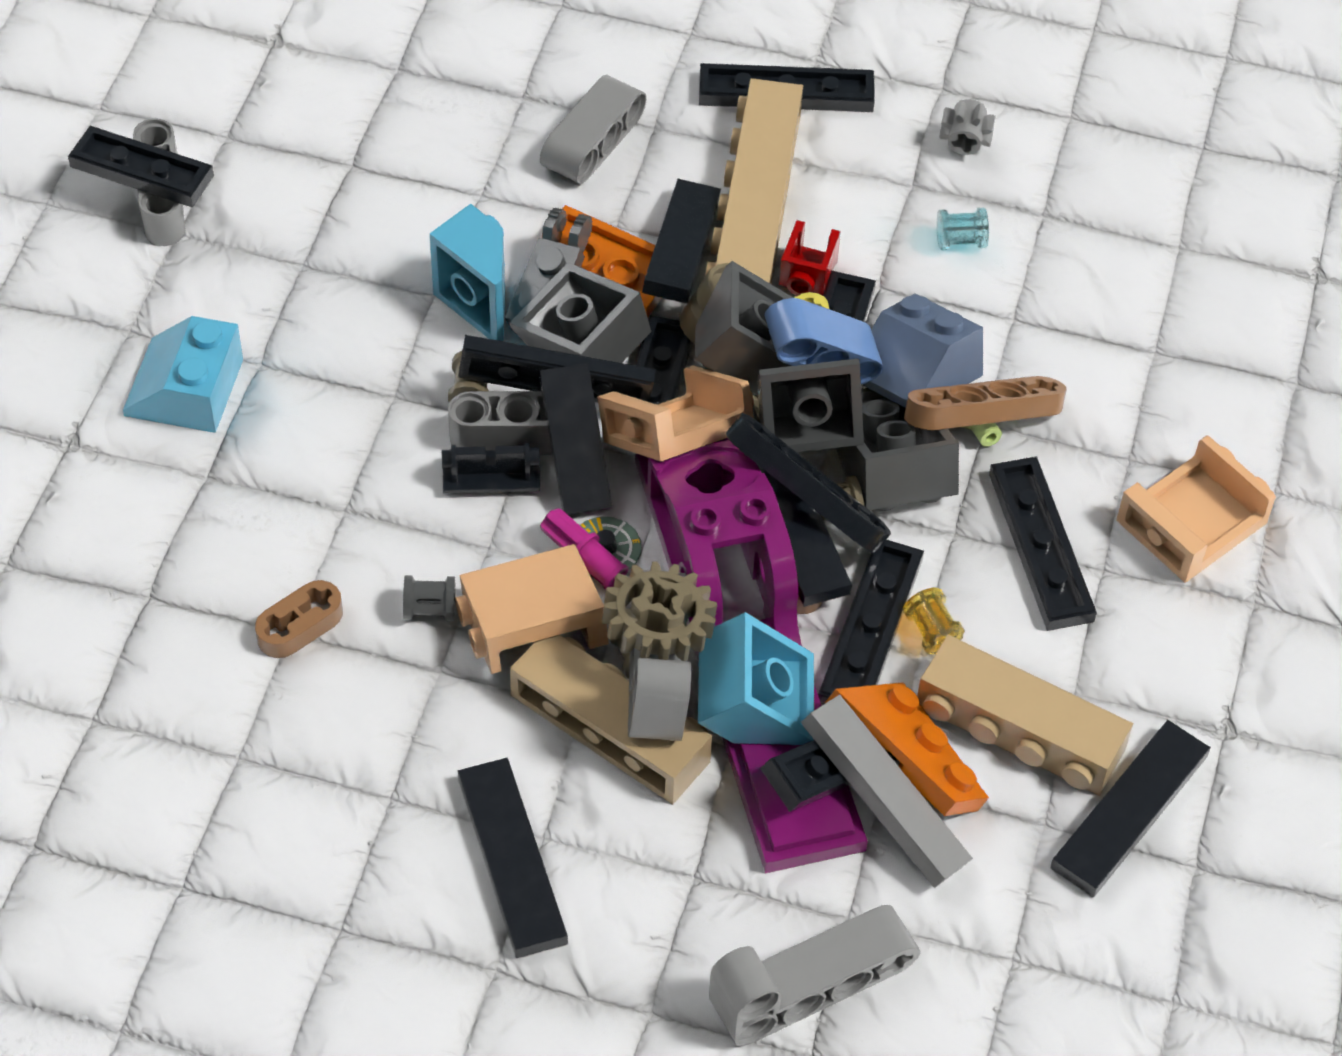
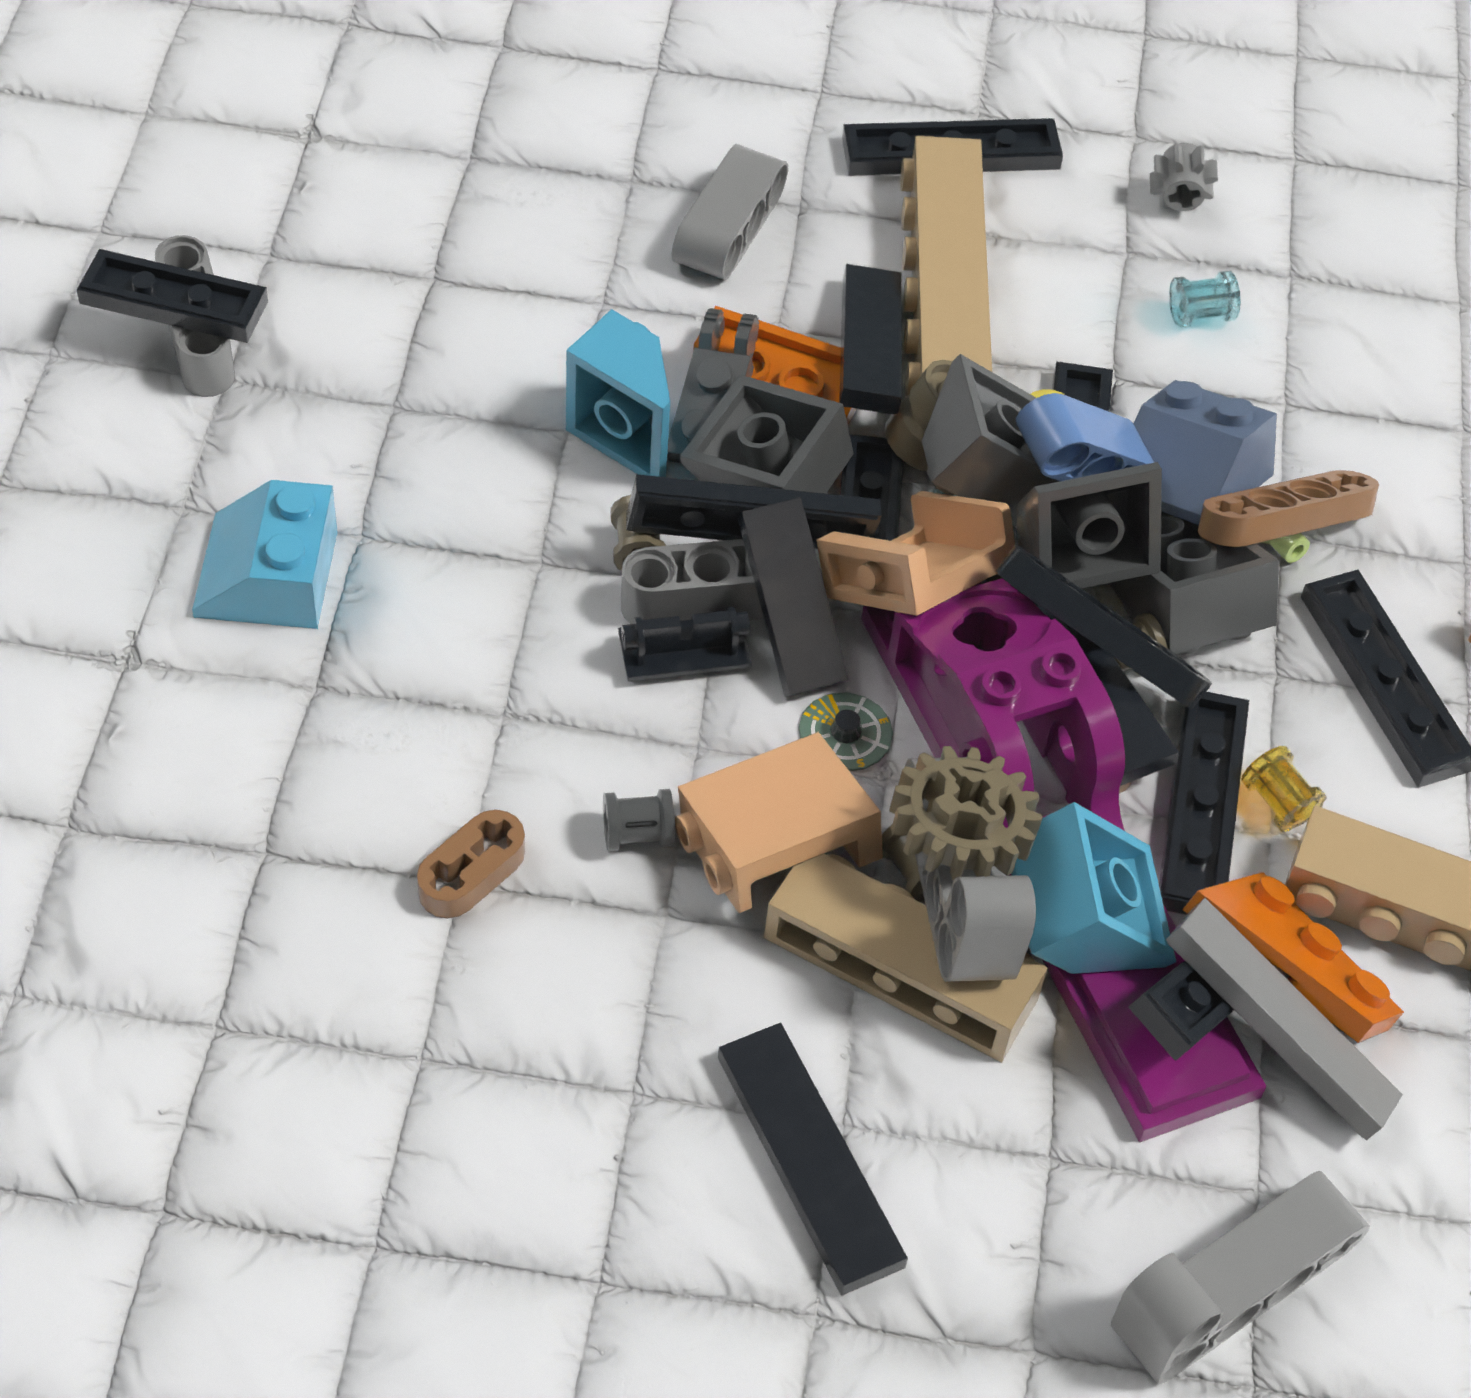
camera: 10 degrees left, 0 degrees up
(597, 559) = (803, 719): dark pink axle -> none
(806, 268) = (1030, 361): red window -> none

